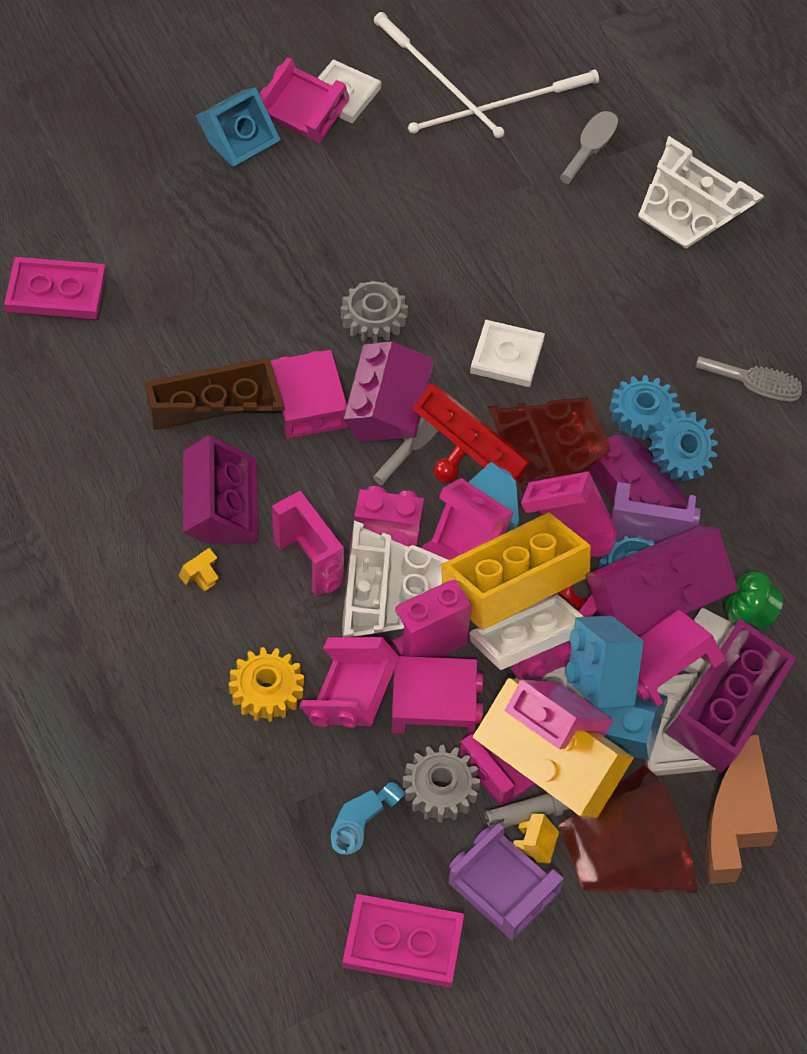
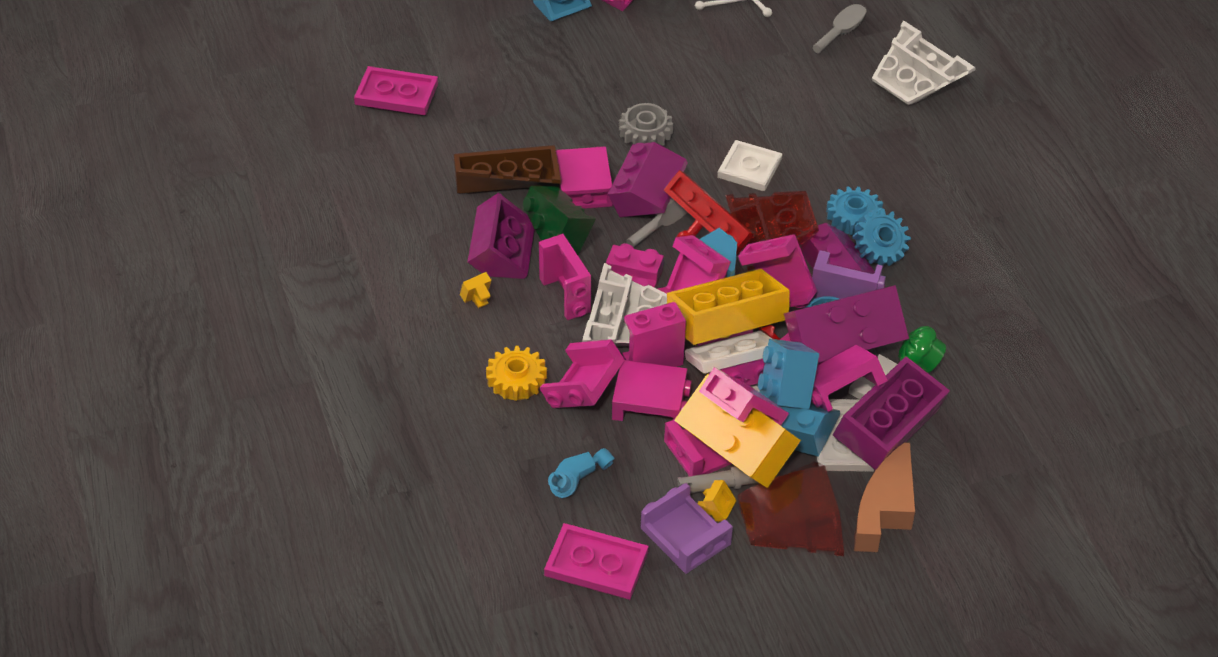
camera: 10 degrees right, 10 degrees down
(285, 459) = (555, 214): none -> dark green wedge
(444, 767) = (645, 455): light grey gear -> none
(759, 380) = (953, 201): light grey piece -> none

